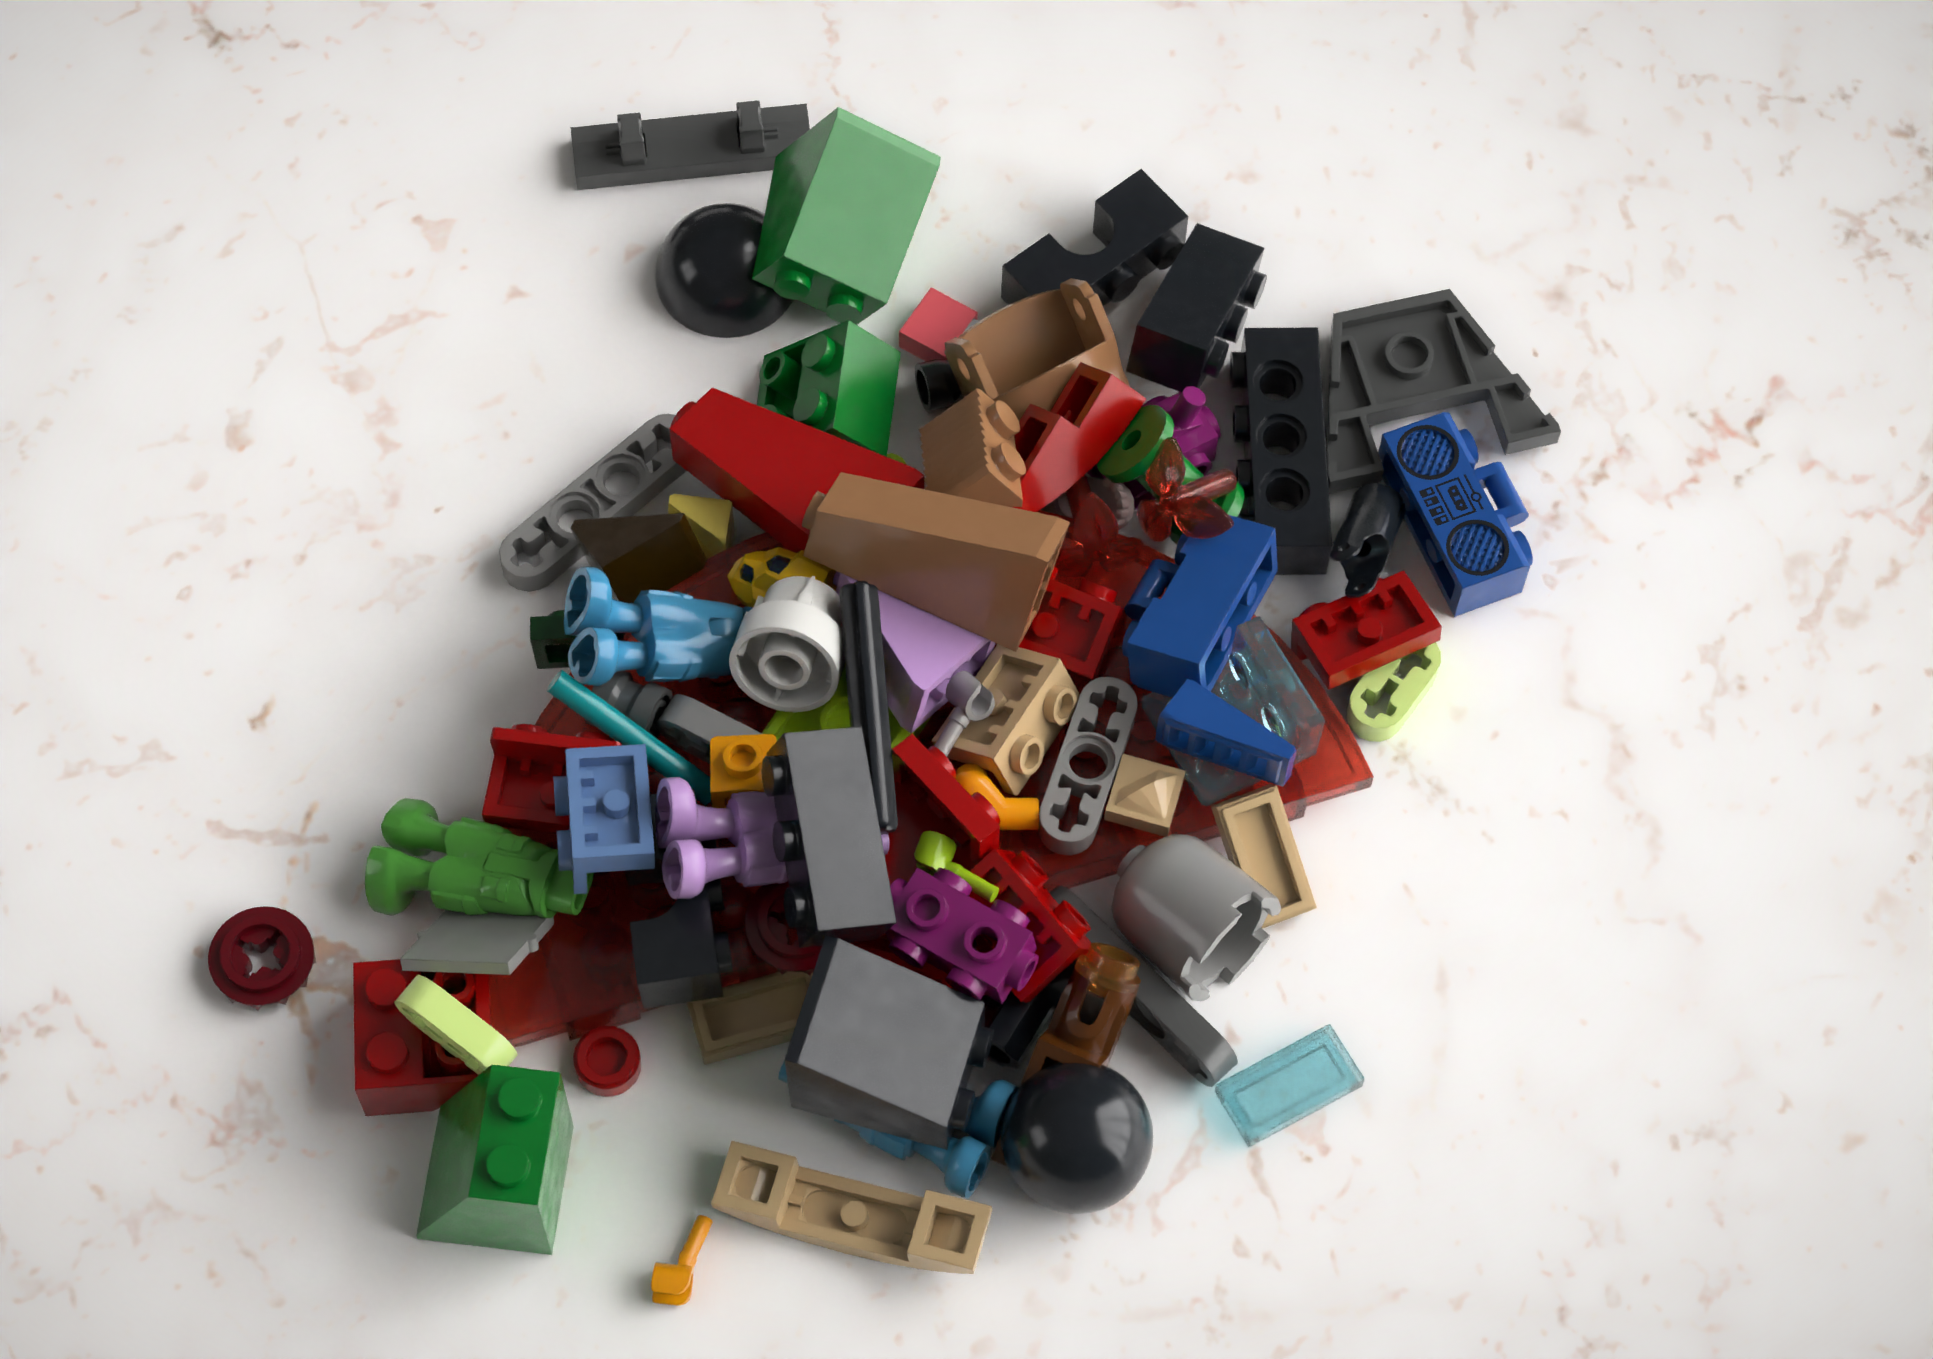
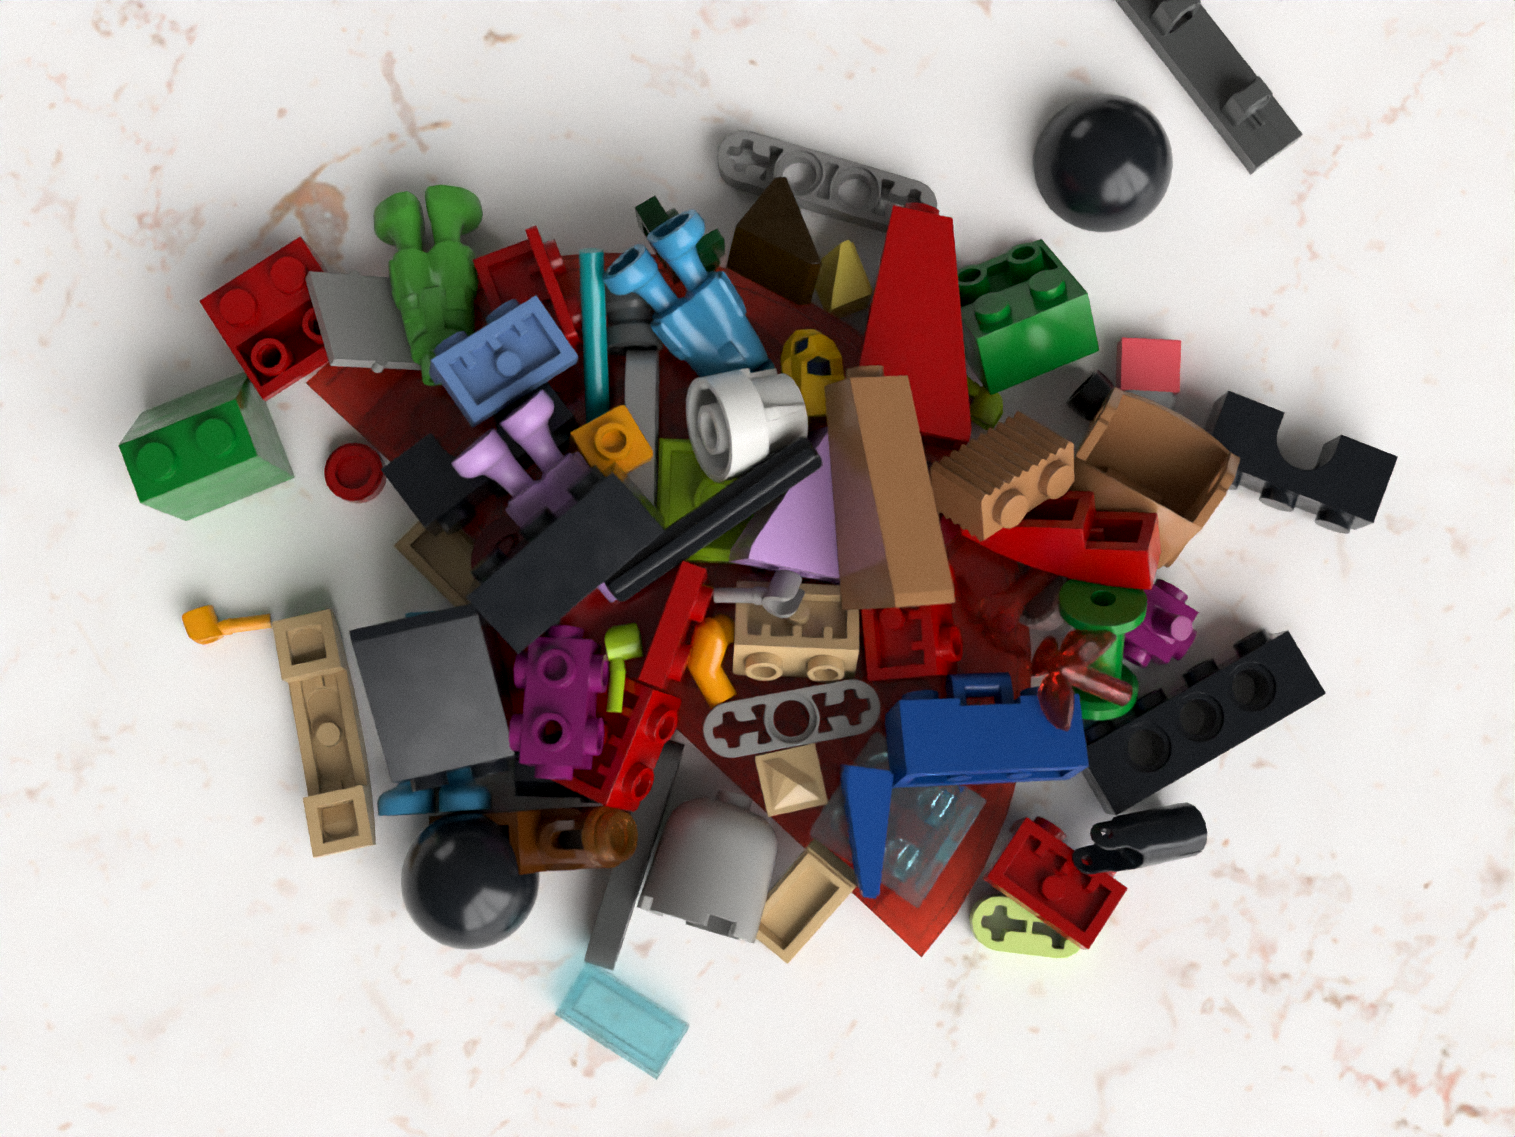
camera: 65 degrees right, 20 degrees up
(257, 931) = (276, 144): dark red gear -> none
(454, 1026) = (270, 349): yellowish green beam -> none
(842, 215) = (1192, 230): slope -> none
(1197, 310) = (1282, 581): black brick -> none
(1415, 361) = (1349, 785): dark grey wing -> none
(1450, 516) = (1214, 895): blue piece -> none

